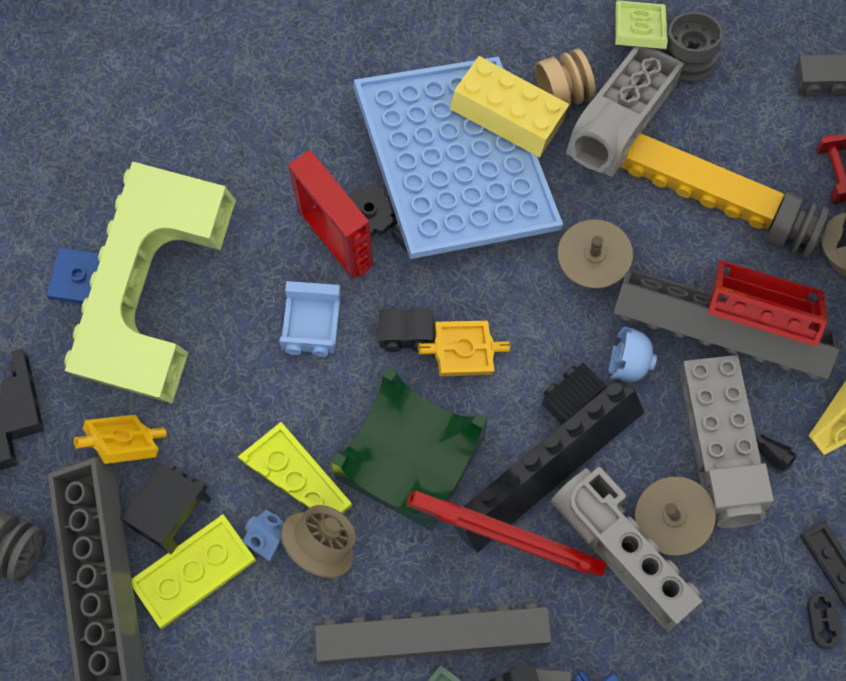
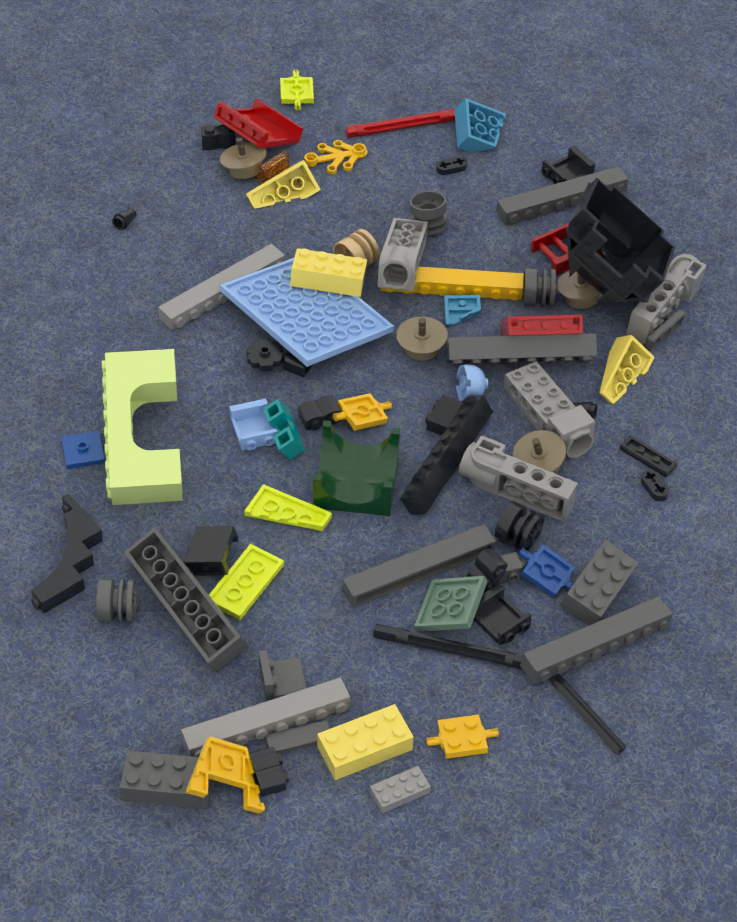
camera: 25 degrees left, 20 degrees down
(120, 438) = (163, 521): yellow plate -> none
(264, 535) = (292, 544): medium blue brick -> none
(320, 541) = (324, 531): dark tan piece -> none
(331, 214) = (228, 326): red window -> none
(334, 83) = (208, 294): none -> light grey brick
(348, 323) = (288, 437): none -> teal arch
(506, 534) = (406, 481): red piece -> none
(594, 631) = (519, 526): none -> black wheel
(640, 24) = (389, 210): yellowish green tile -> none
(673, 218) = (460, 308): none -> dark azure wing

